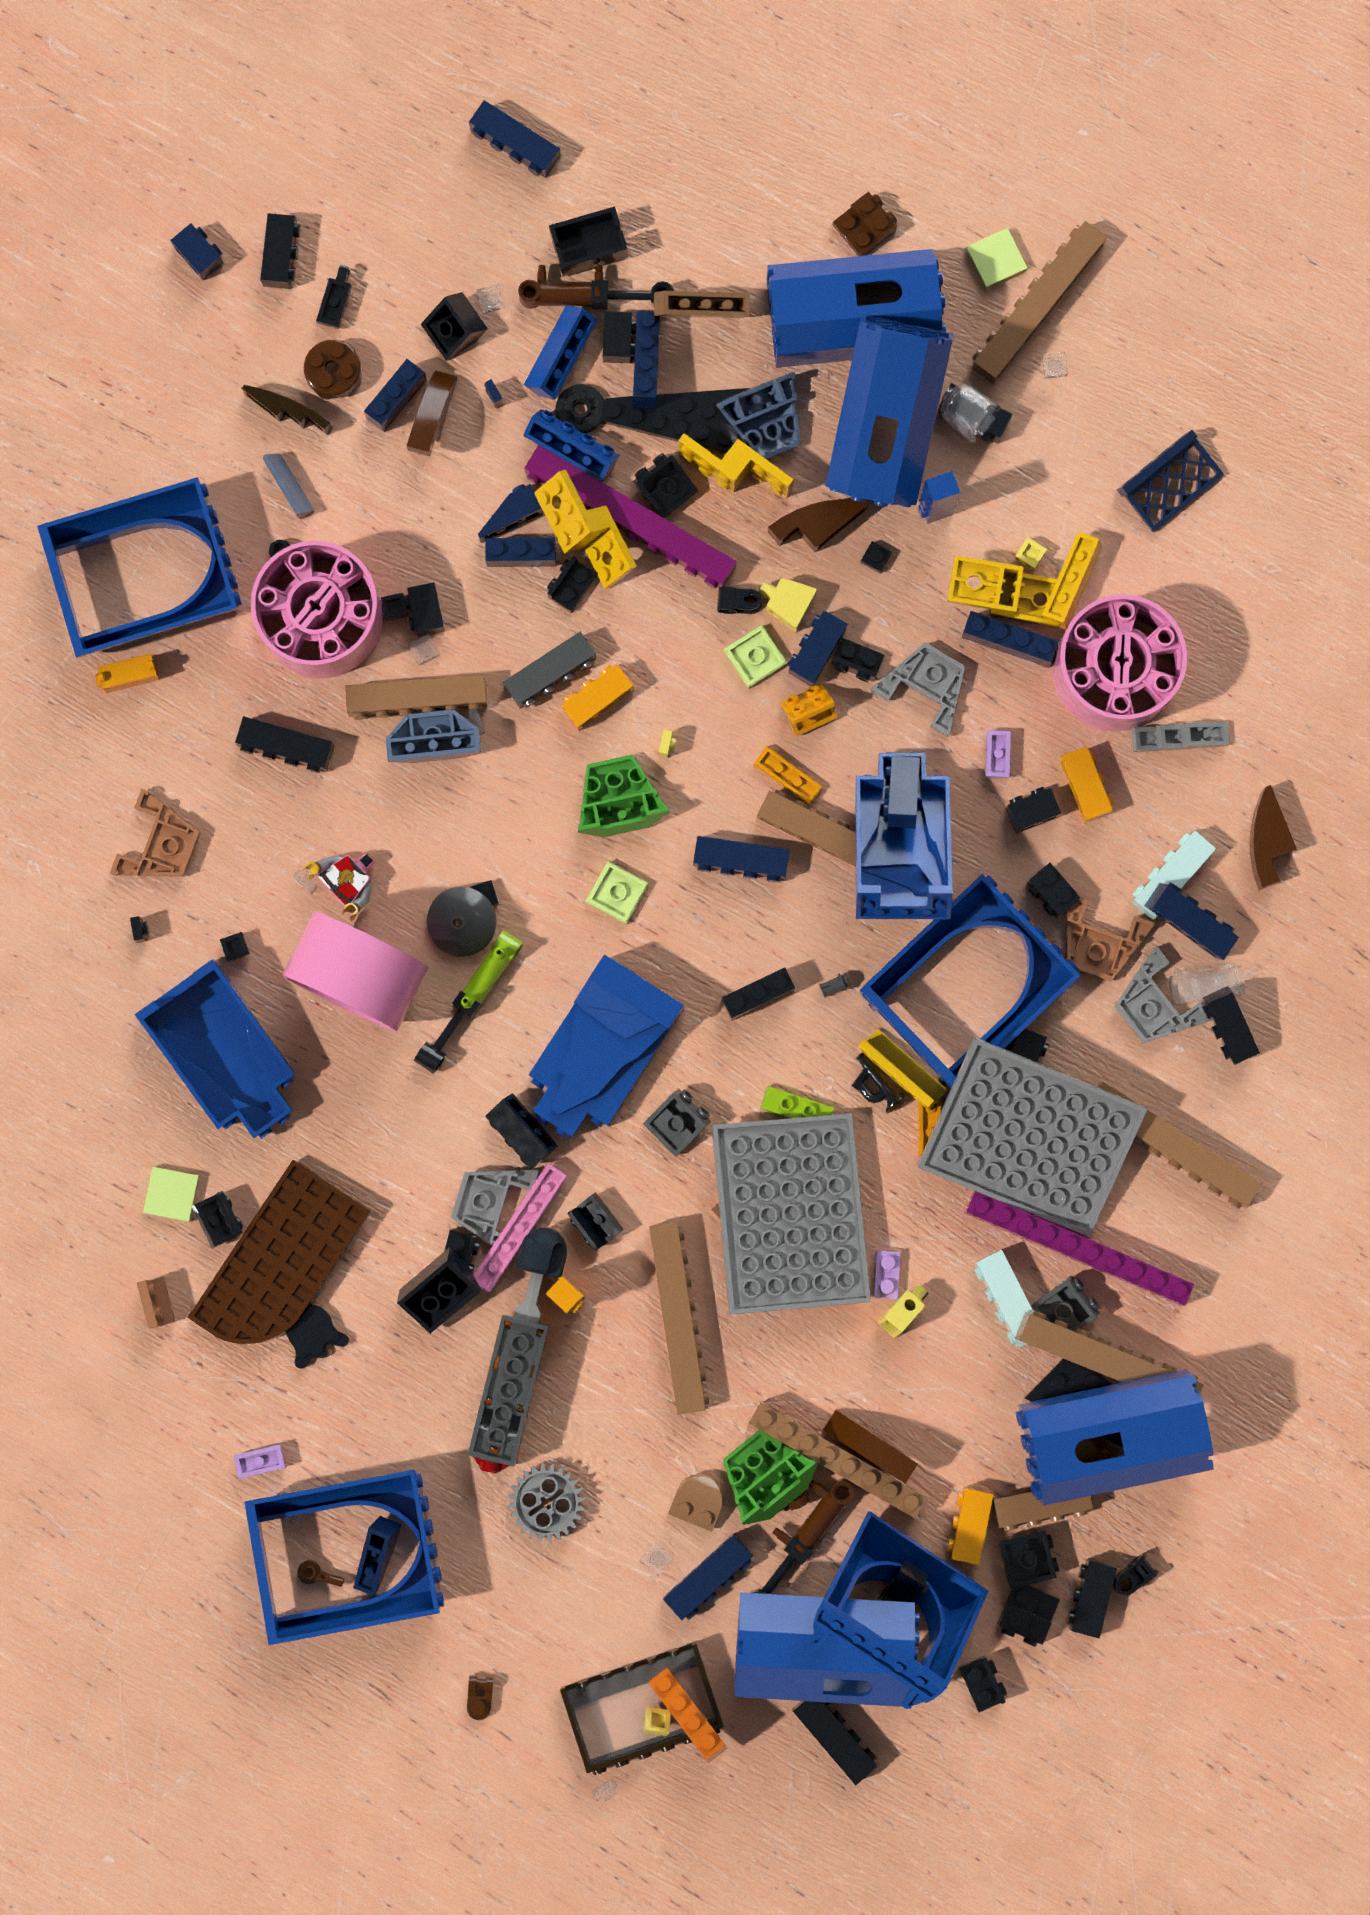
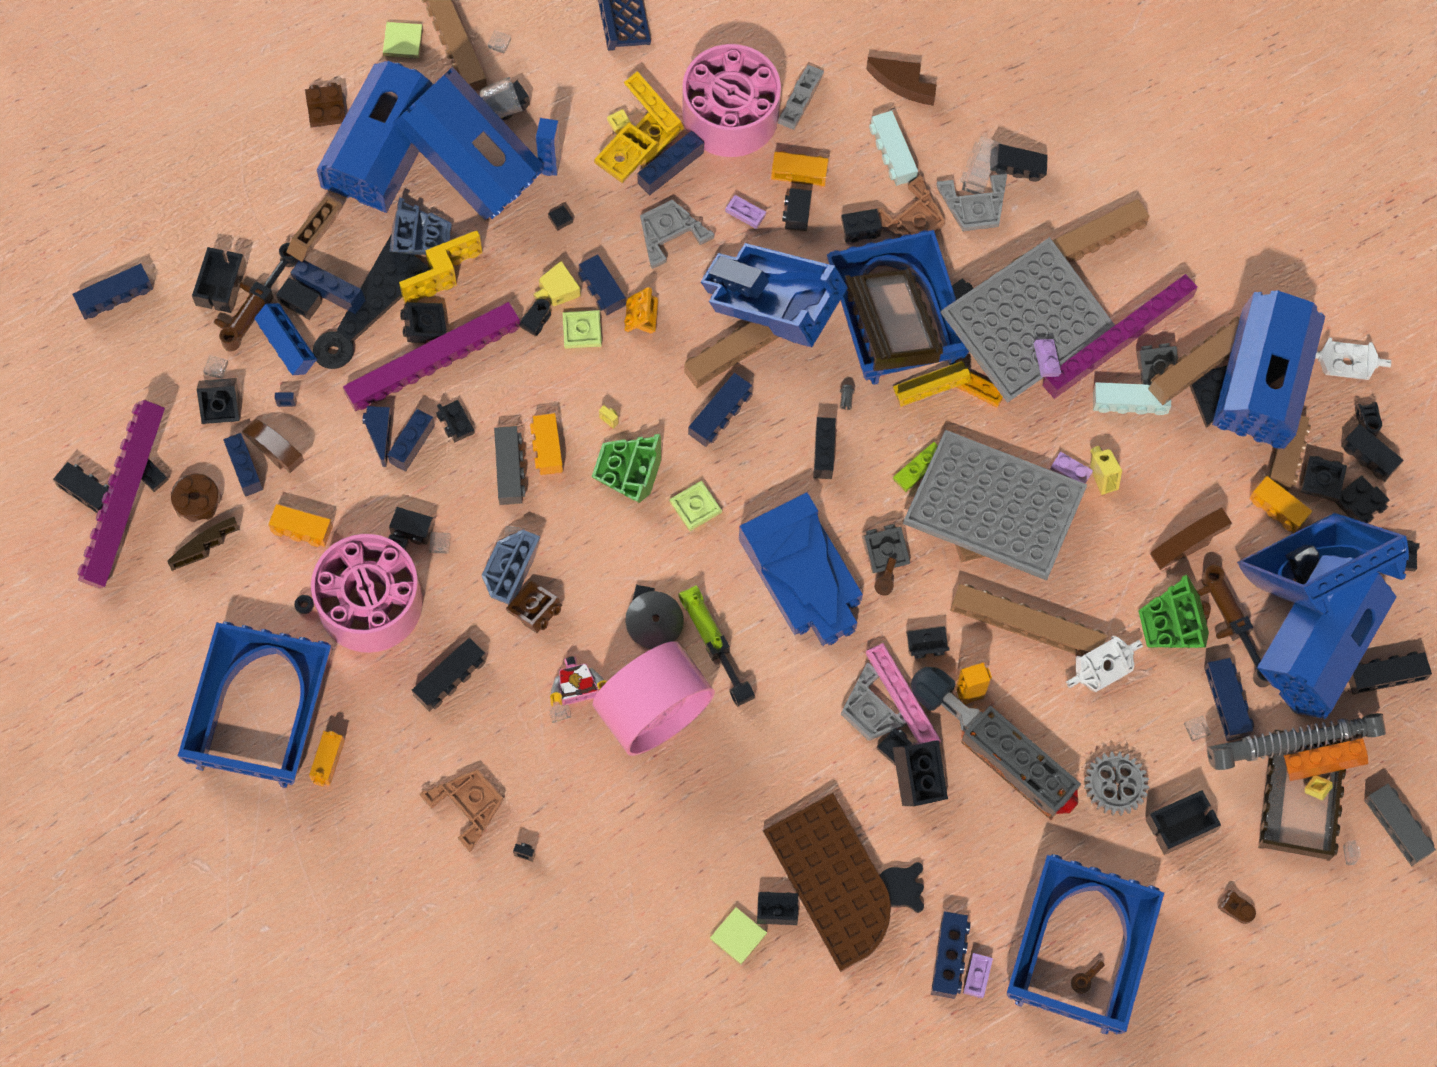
camera: 65 degrees left, 15 degrees down
(156, 1302) = (815, 988): nougat bracket -> none
(196, 251) = (46, 544): dark blue brick -> none
(220, 1051) = (651, 836): blue panel -> none
(228, 1428) = (940, 985): none -> dark blue brick
(234, 947) = (578, 790): black plate -> none
(288, 292) = (121, 494): none -> magenta brick
(288, 484) = (259, 574): sand blue slope -> none
(361, 495) = (300, 526): none -> light orange brick
(376, 1555) = (1094, 926): dark blue slope -> none
(406, 789) = (535, 607): none -> reddish brown plate
(415, 696) = (470, 565): medium nougat brick -> none
(521, 1131) = (833, 657): black brick -> none
(538, 1595) = (1183, 822): none -> black piece
(571, 445) = (357, 365): blue brick -> none
(585, 529) = (423, 385): yellow bracket -> none
(636, 1142) = (884, 584): none -> reddish brown plate
(655, 1629) = (1224, 755): none -> dark grey piece
(658, 1411) = (1090, 666): none -> white plate
(664, 1829) = (1400, 825): none -> dark grey brick
(698, 1501) = (1169, 678): medium nougat slope -> none
(787, 775) = (678, 351): light orange tile -> none
(817, 521) = (512, 240): reddish brown slope -> none
(837, 1460) = (1191, 565): medium nougat brick -> none
(857, 660) = (626, 265): black bracket -> none
(893, 1098) = (941, 403): black piece -> none
(942, 989) = (893, 319): none -> window
(994, 1182) = (1047, 358): none -> lavender plate
(1191, 920) = (933, 149): dark blue brick -> none
(1200, 1538) = (1363, 359): none -> white plate

